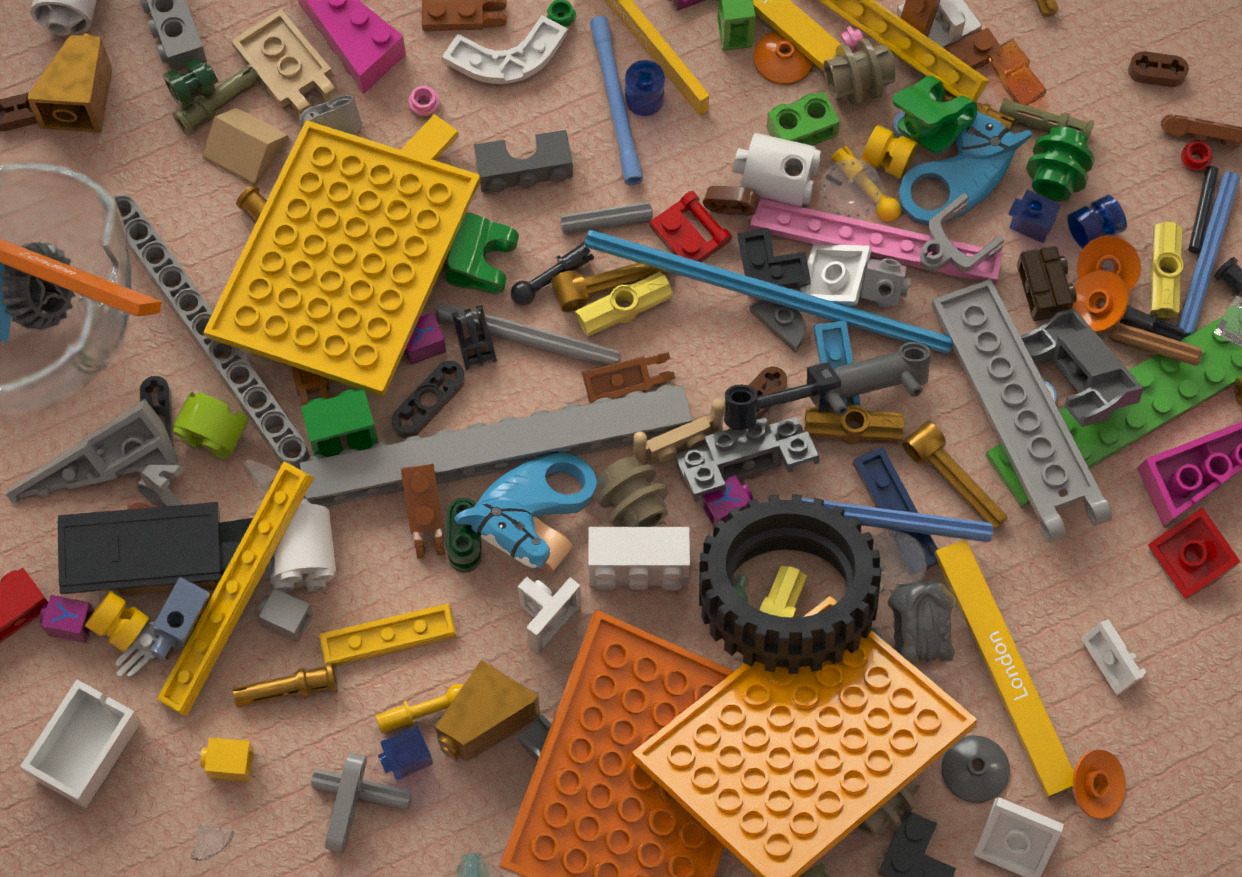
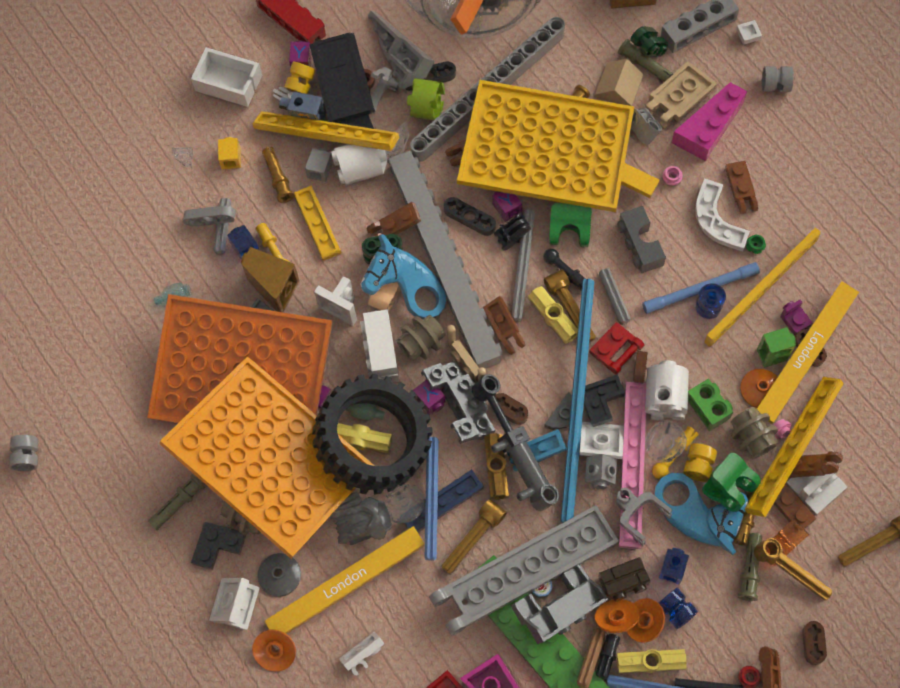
camera: 85 degrees right, 0 degrees up
(339, 416) = (438, 166): green piece -> none
(1039, 84) = (789, 566): none -> pearl gold axle
(1060, 164) = (714, 576): green piece -> none

